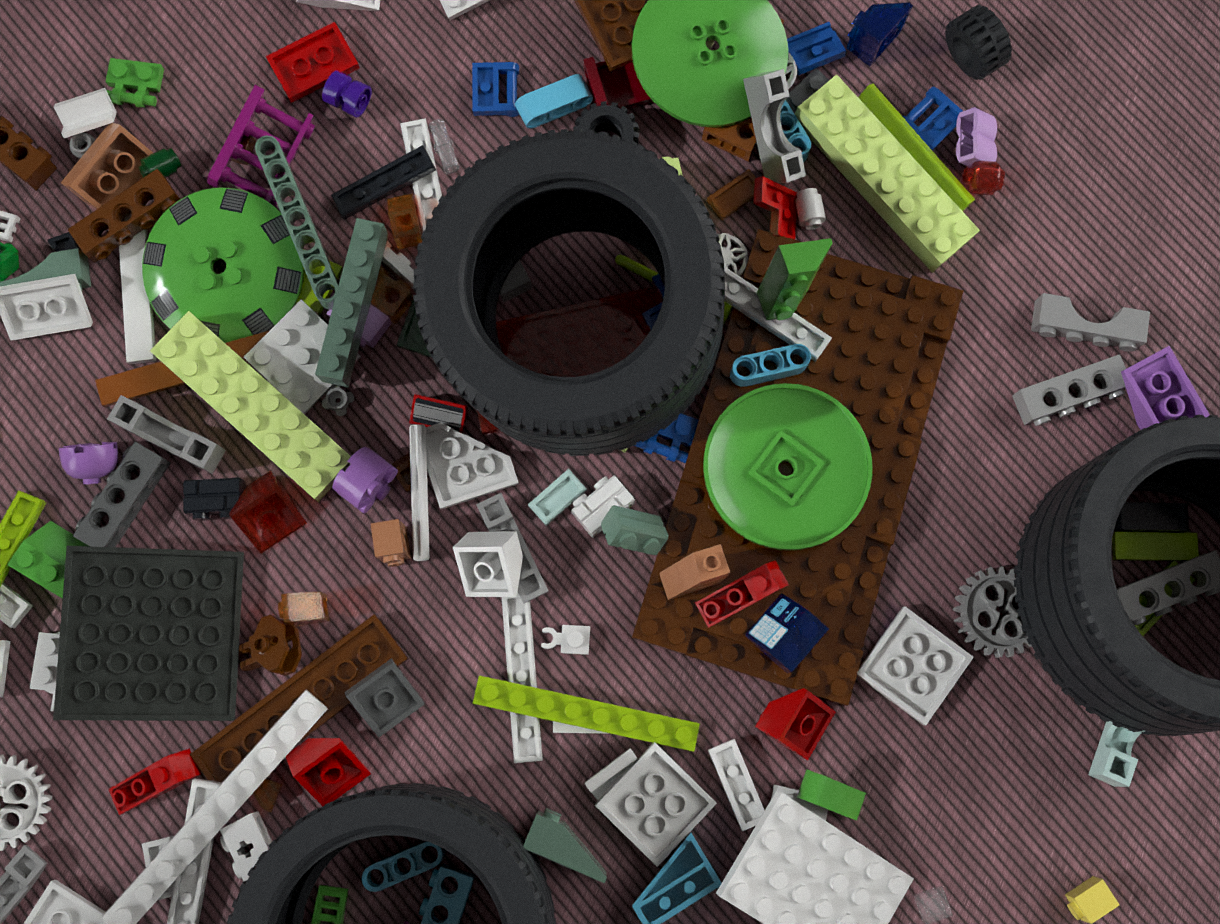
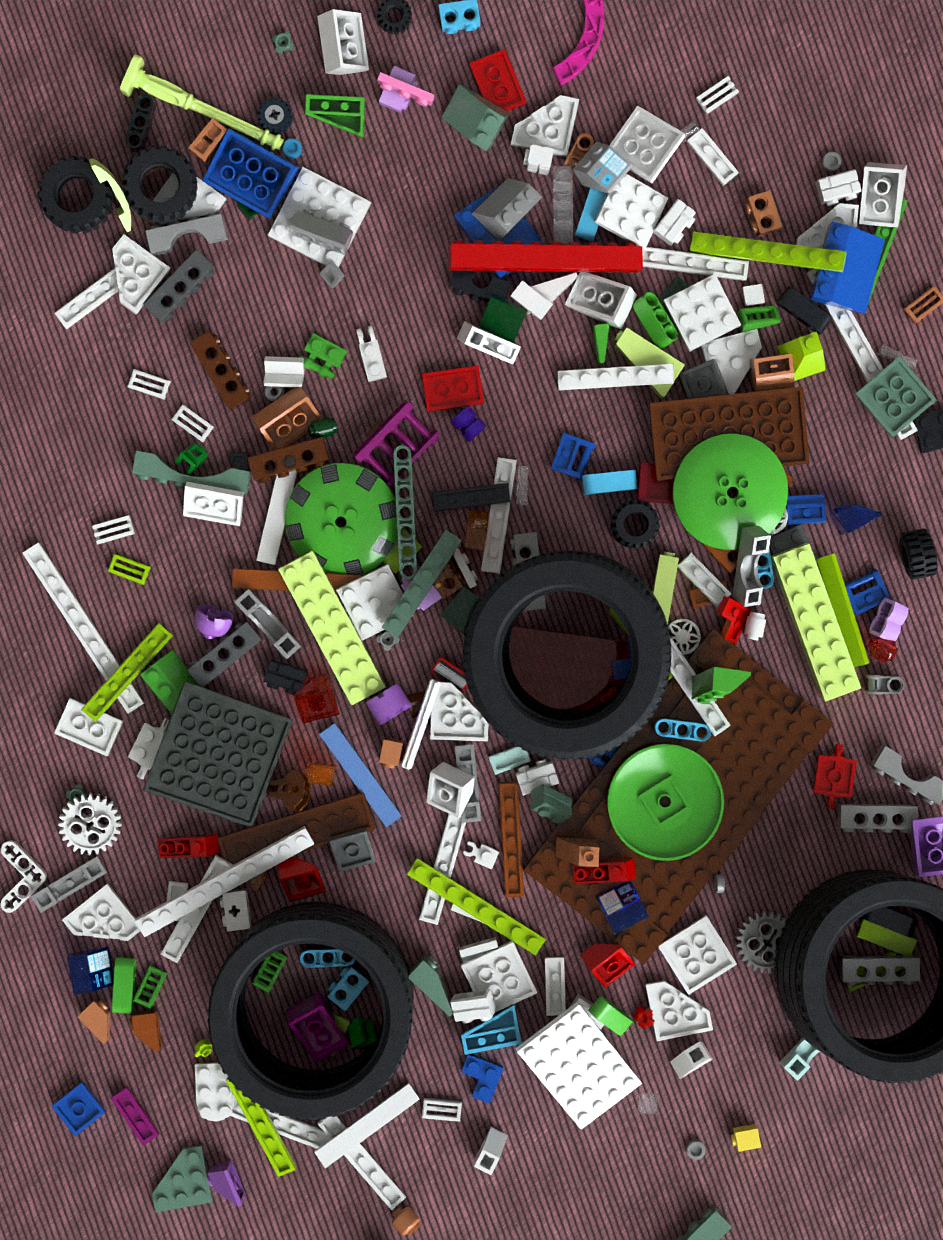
camera: 20 degrees right, 10 degrees up
(196, 62) = (371, 356): none -> white hinge
(363, 593) = (360, 775): none -> medium blue tile
(600, 604) = (511, 839): none -> dark orange tile
(634, 856) = (473, 1006): none -> white brick
(720, 176) = (703, 579): none -> white tile
(877, 781) = (644, 1017): none -> red plant
(903, 556) = (719, 883): none -> light grey tile
(918, 758) = (675, 1012): none -> white plate
(967, 816) = (691, 1059): none -> white slope
(993, 359) = (834, 776): none -> red plate
(1001, 222) = (881, 684): none -> light grey piece

